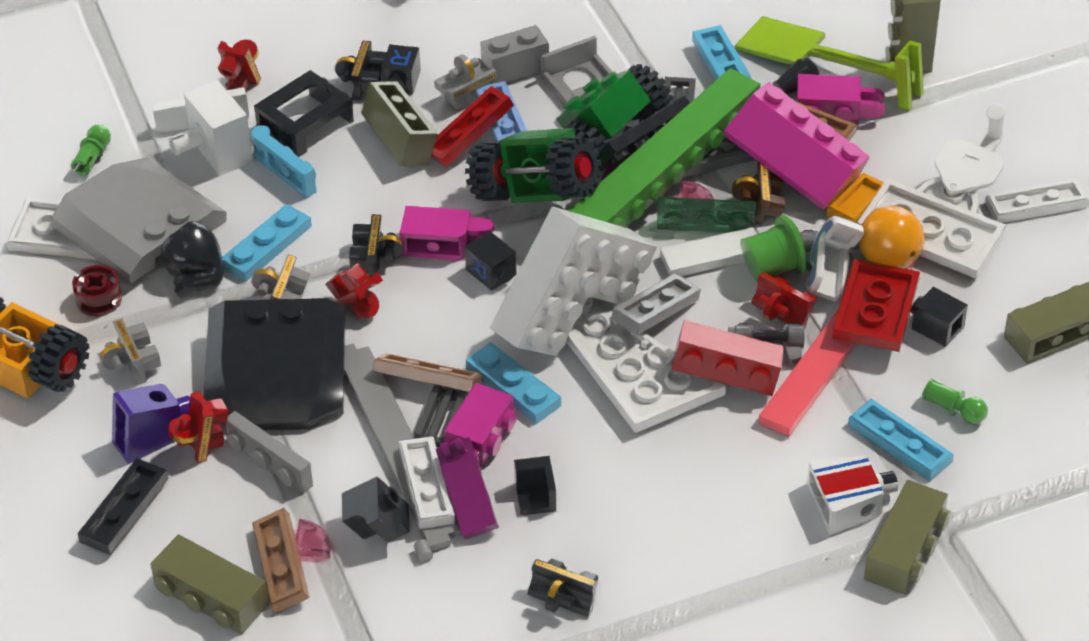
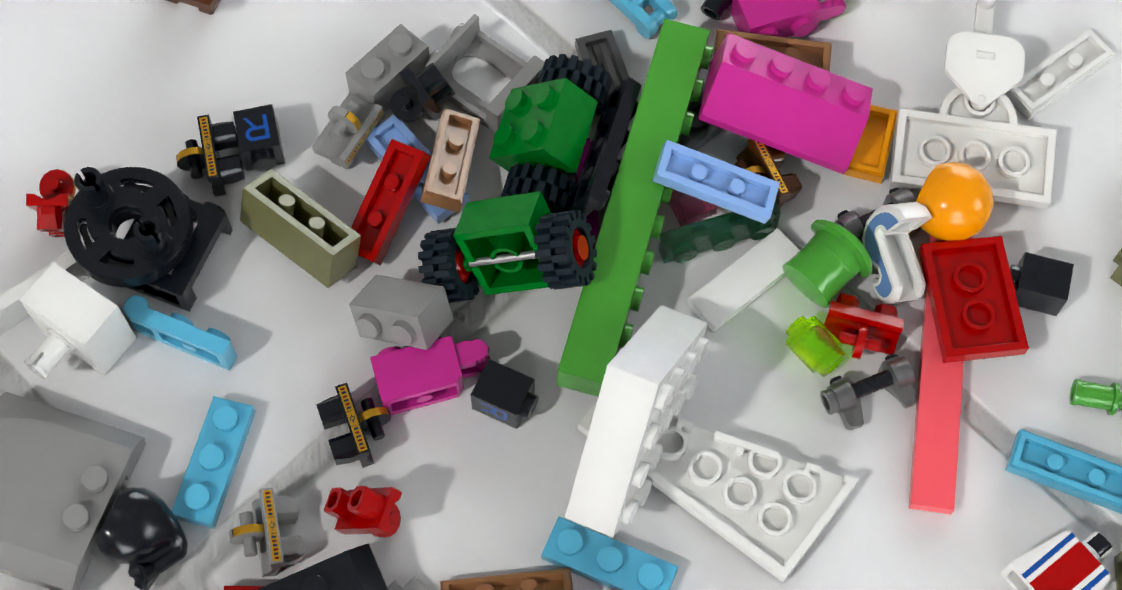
camera: 25 degrees left, 20 degrees up
(281, 64) = (107, 205): none -> black piece
(442, 186) = (401, 311): none -> light grey brick
(530, 114) = (450, 160): none -> medium nougat tile
(532, 69) = (425, 92): none -> black hips
(655, 304) = (728, 391): light grey plate -> none
(711, 169) = (716, 181): none -> light blue plate
(728, 358) = (849, 444): red brick -> none
(739, 300) = (815, 345): none -> clear neon green brick

